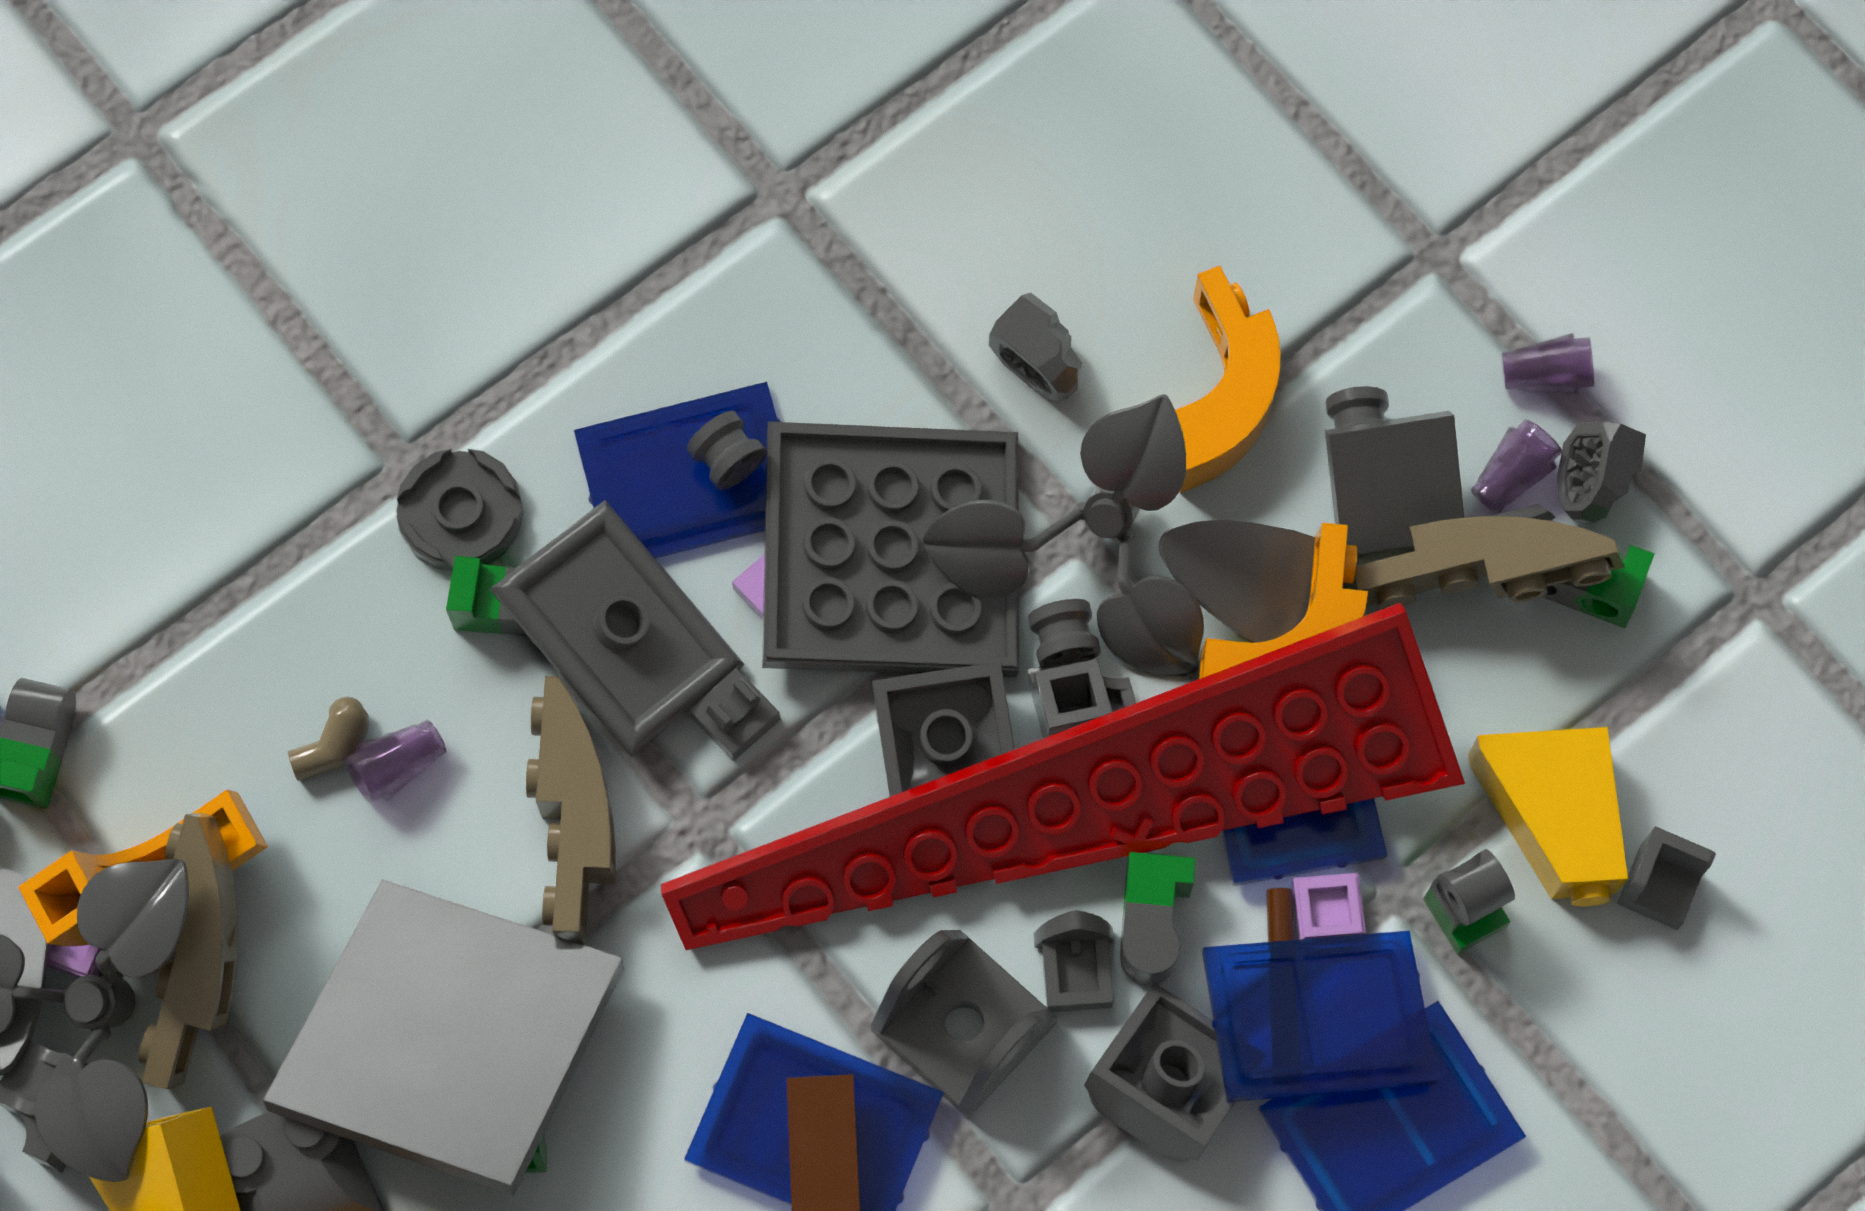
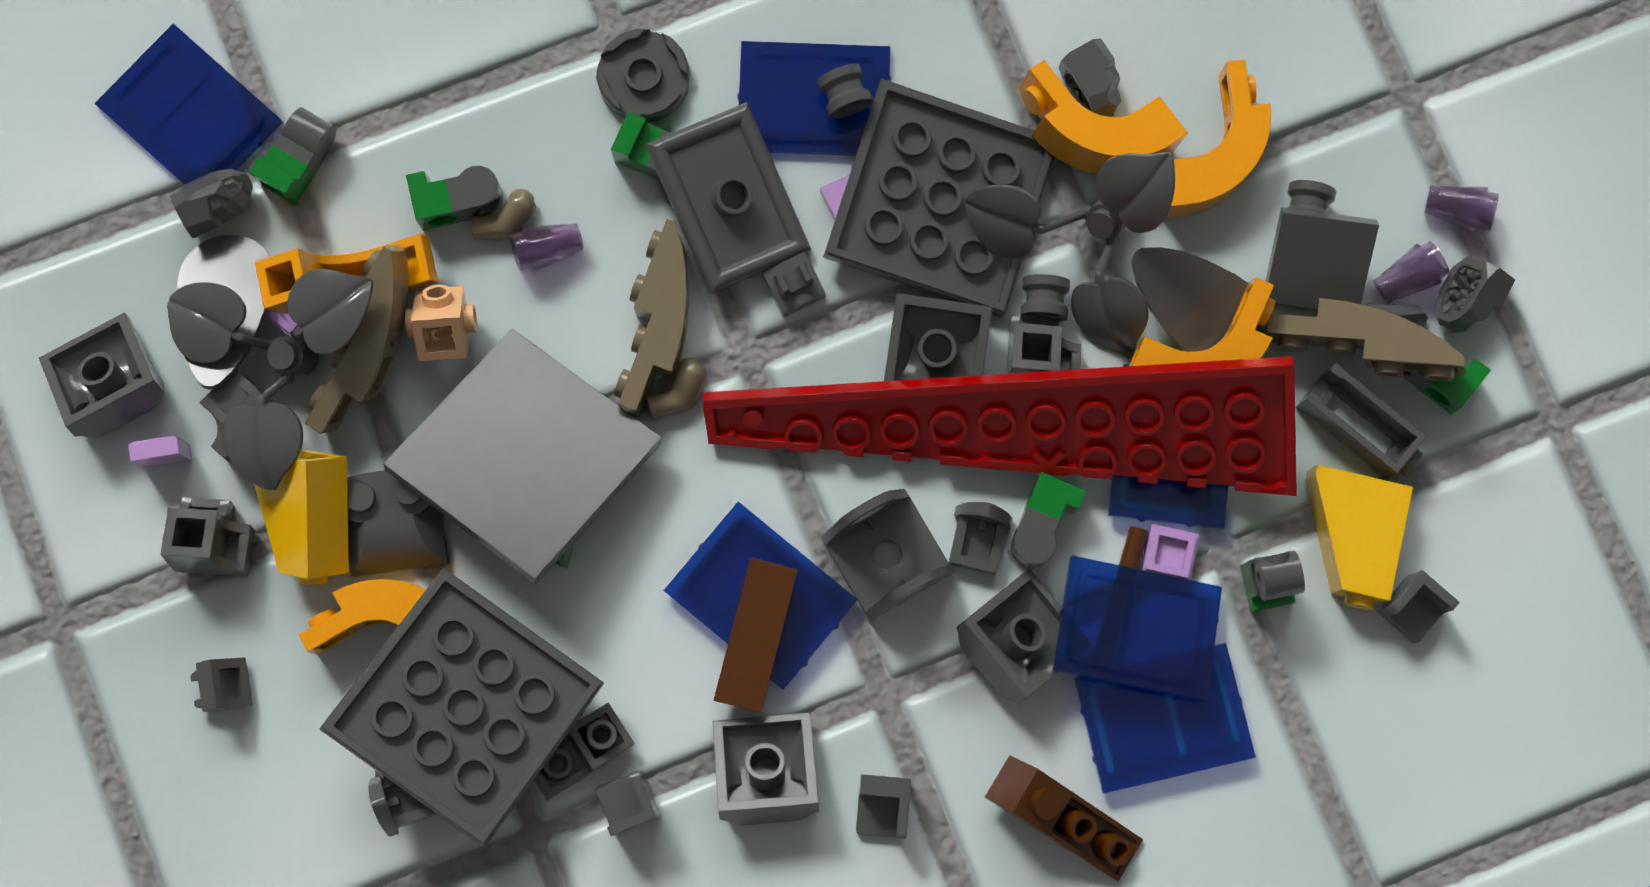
camera: 15 degrees right, 10 degrees up
(258, 734) = (454, 199): none -> leg
(286, 897) = (441, 322): none -> light nougat brick
(633, 893) = (684, 390): none -> dark tan arm
(1051, 418) = (1088, 138): none -> light orange arch
(1527, 649) = (1406, 437): none -> dark grey window

